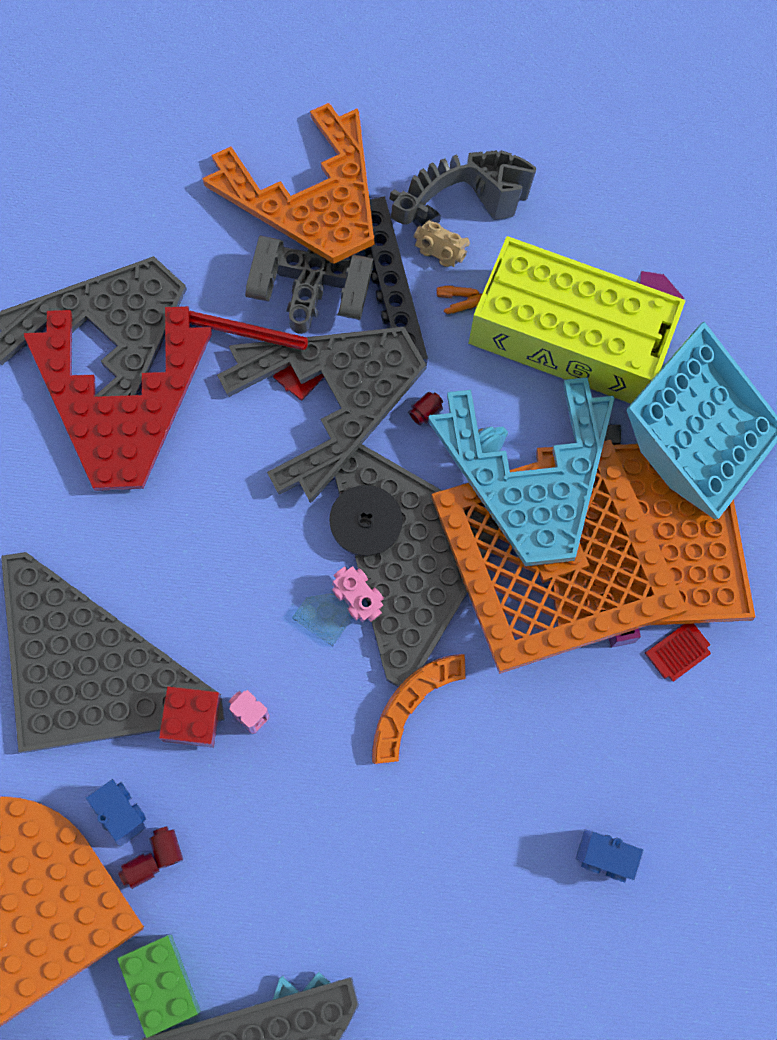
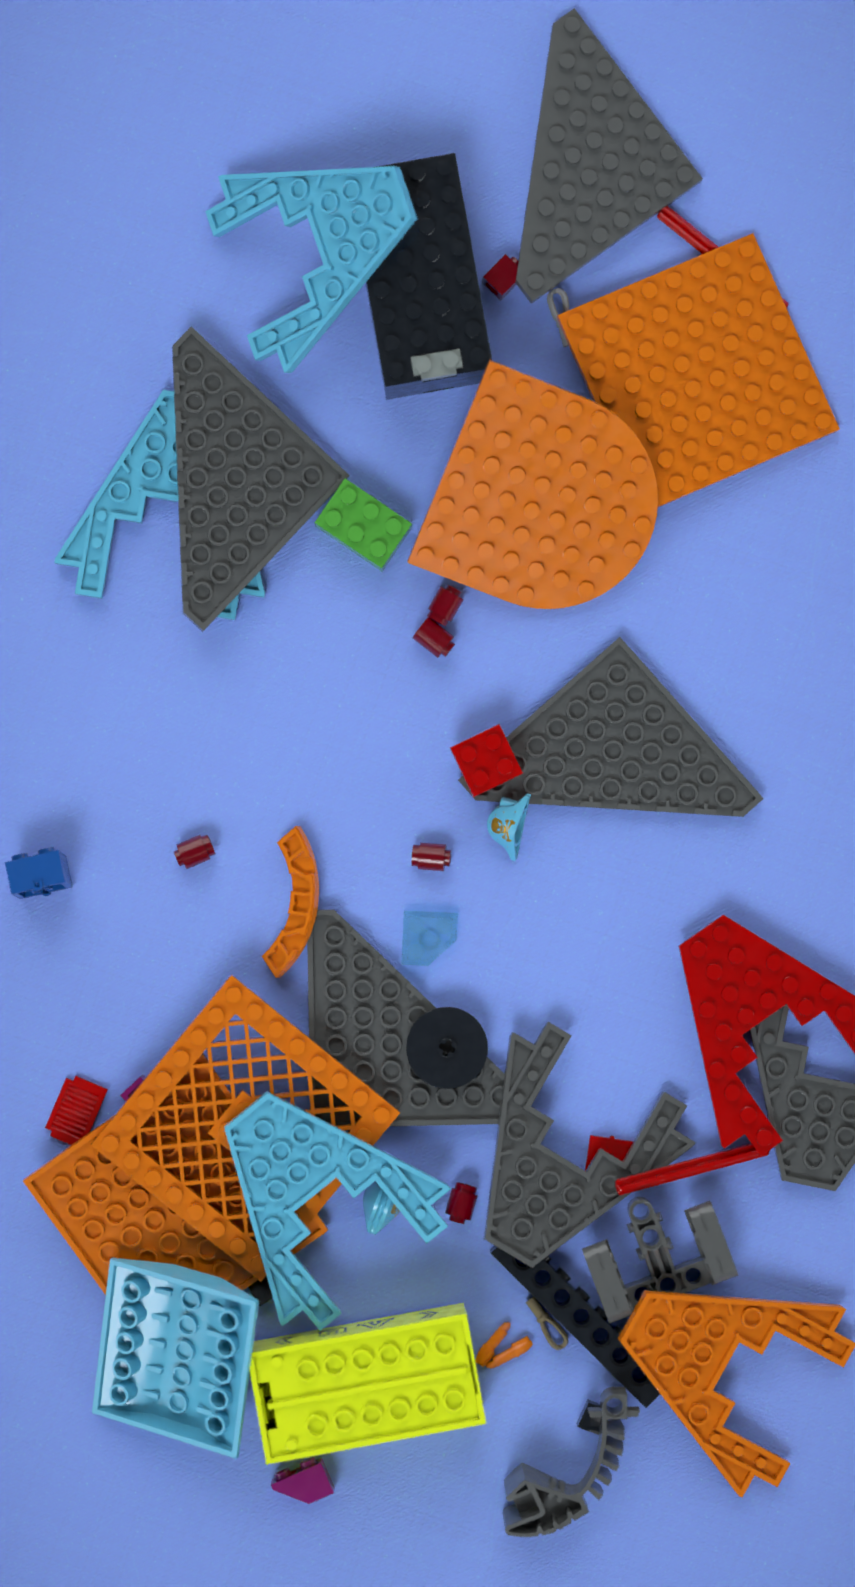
camera: 155 degrees right, 15 degrees up
(116, 812) = (489, 639): blue brick -> none
(208, 661) = (507, 823): none -> medium azure hat
(248, 711) = (437, 799): bright pink brick -> none
(284, 672) = (431, 856): none -> dark red brick
(352, 588) = (418, 972): bright pink brick -> none
(417, 300) = (543, 1316): none -> dark tan piece
(441, 243) = (556, 1394): tan brick -> none
(469, 795) = (194, 851): none -> dark red brick

